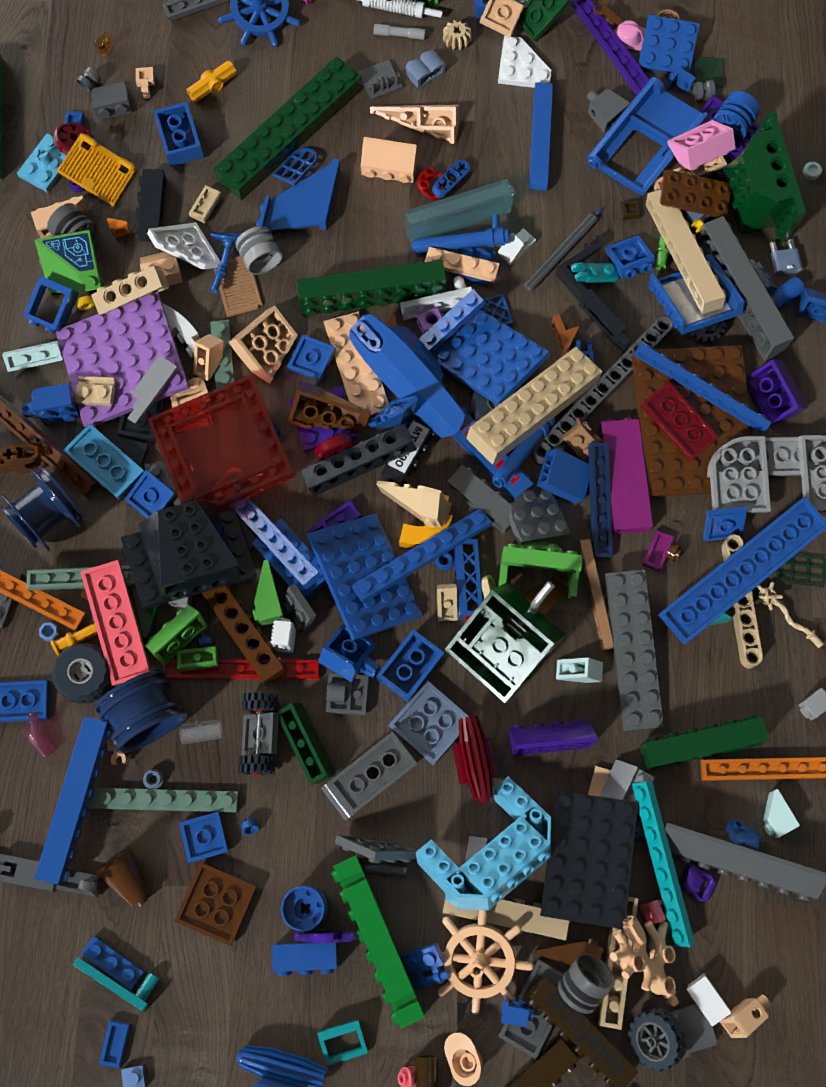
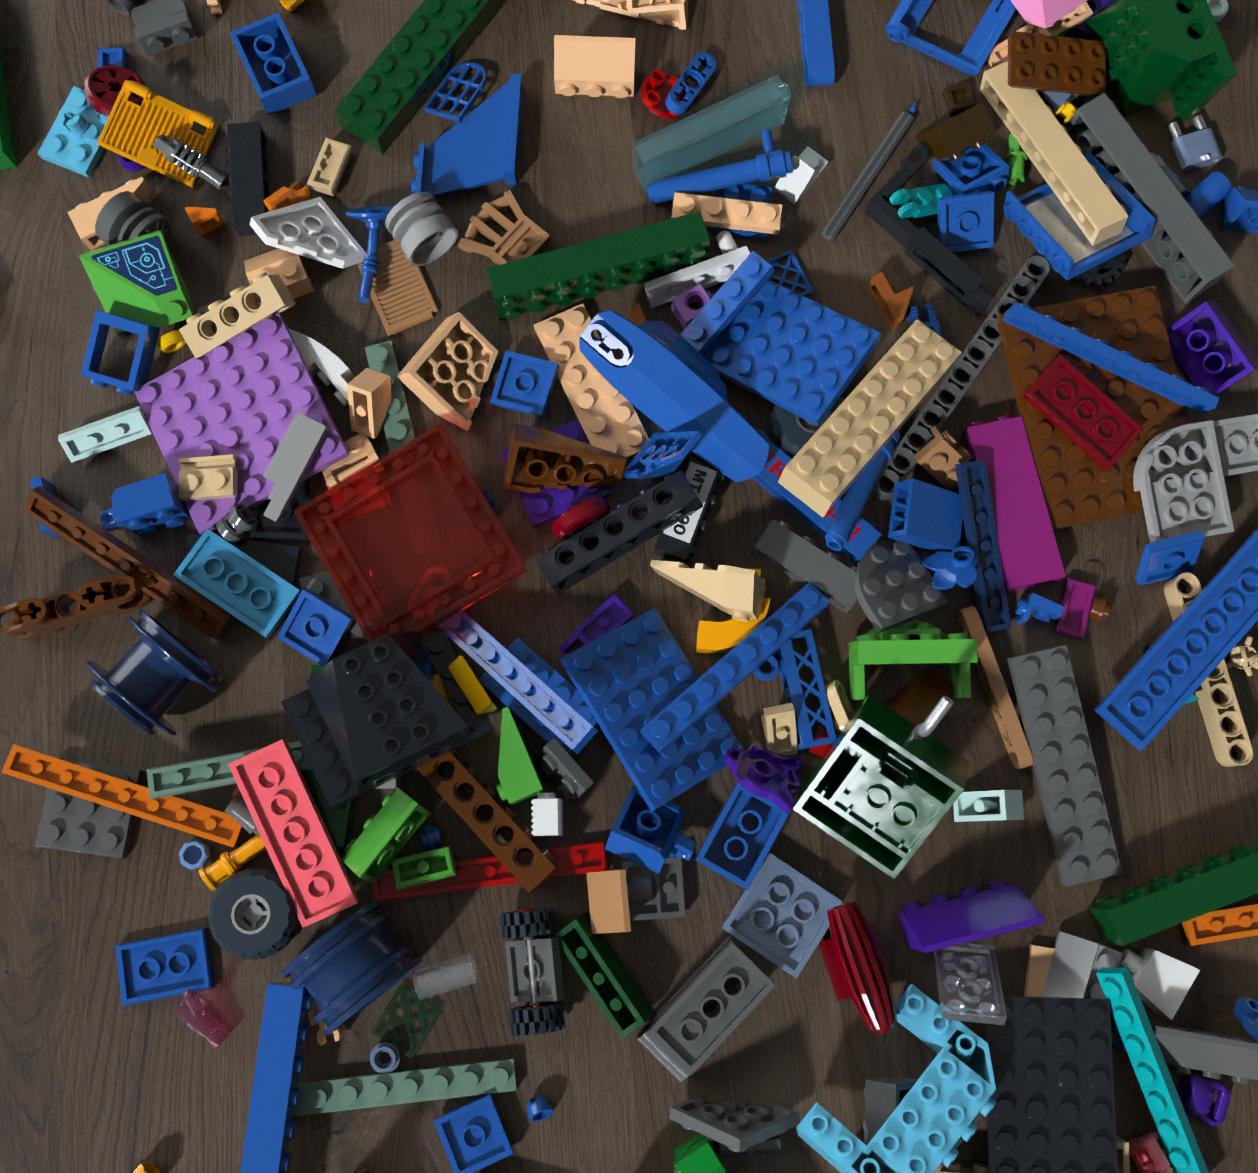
camera: 10 degrees left, 5 degrees up
(84, 608) = (239, 811): none -> dark grey cone
(109, 422) = (236, 523): none -> dark grey wheel
(115, 189) = (190, 160): none -> dark grey hinge
(174, 219) = (287, 196): none -> orange plate
(191, 755) = (377, 1029): none -> clear green window
(246, 545) = (471, 686): none -> yellow slope
(314, 695) = (608, 901): none -> medium nougat slope
(322, 265) = (519, 242): none -> medium nougat plate
(432, 628) = (766, 774): none -> dark purple tile
(546, 780) = (969, 984): none -> clear plate
(577, 510) = (953, 568): none -> blue plate
(621, 289) = (966, 221): none -> blue plate
(623, 230) = (958, 133): none -> dark brown slope
(634, 545) = (1041, 607): none -> blue bracket
(677, 798) = (1159, 979): none -> white torso

